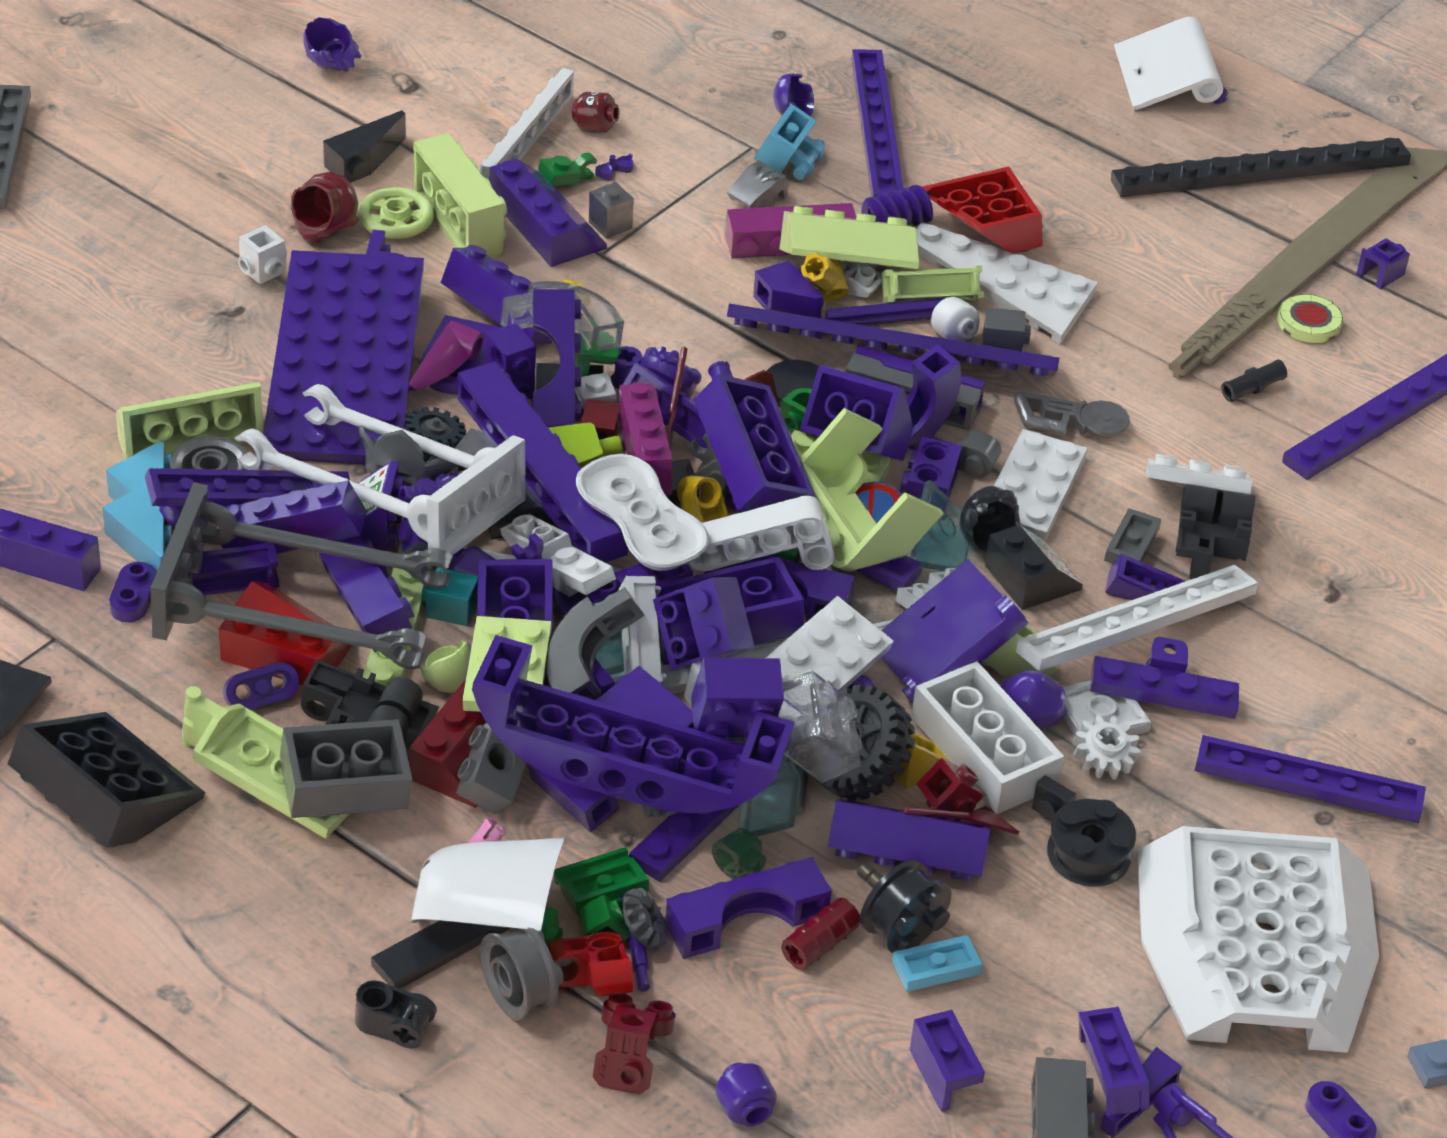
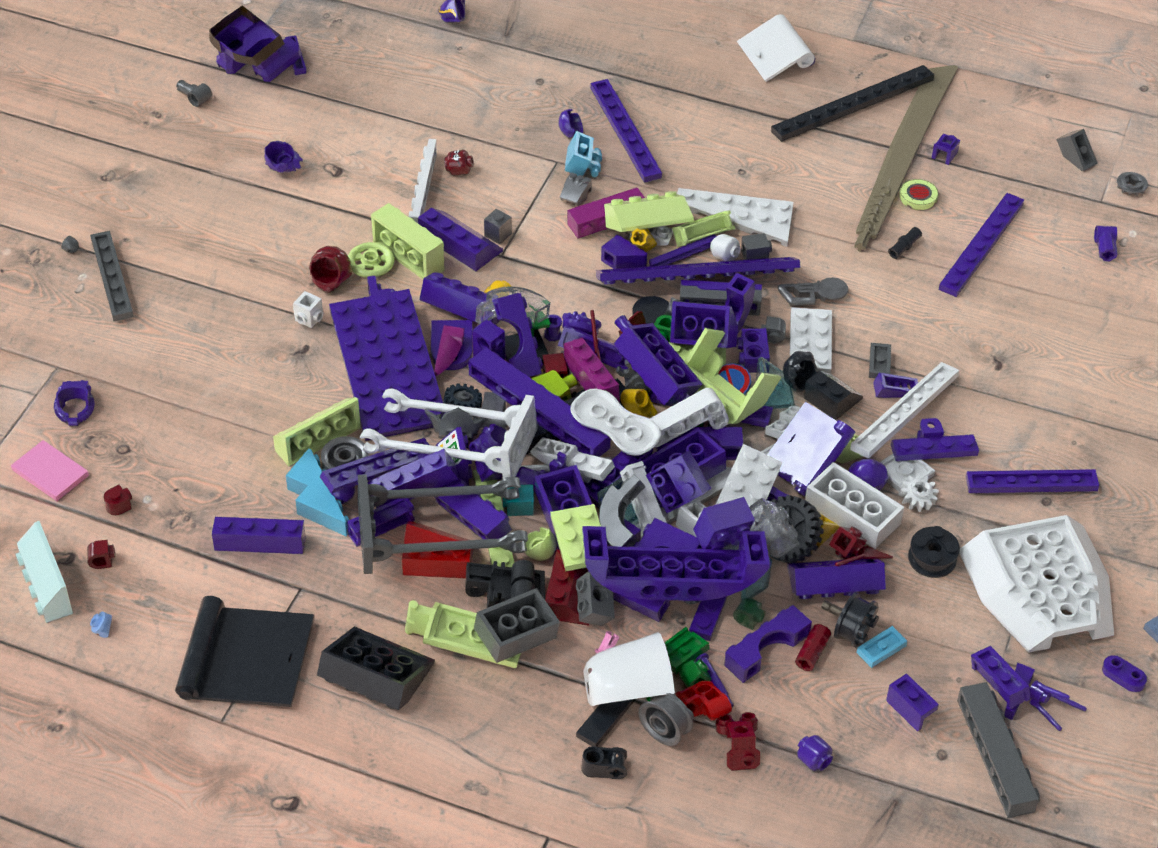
camera: 15 degrees left, 5 degrees up
(132, 592) = (333, 542): dark purple plate -> none
(260, 687) = (436, 588): dark purple plate -> none
(365, 147) = (331, 223): black slope -> none
(563, 171) = (458, 207): green plate -> none
(596, 388) = (545, 346): white plate -> none
(621, 164) = (488, 192): dark purple piece -> none
(644, 918) = (716, 666): dark grey gear -> none
(906, 203) = (664, 181): dark purple piece -> none
(993, 206) = (718, 169): red wedge -> none
(1050, 797) = (903, 532): black plate -> none
(1199, 473) = (900, 311): white plate -> none
(1213, 526) = (921, 342): black plate -> none

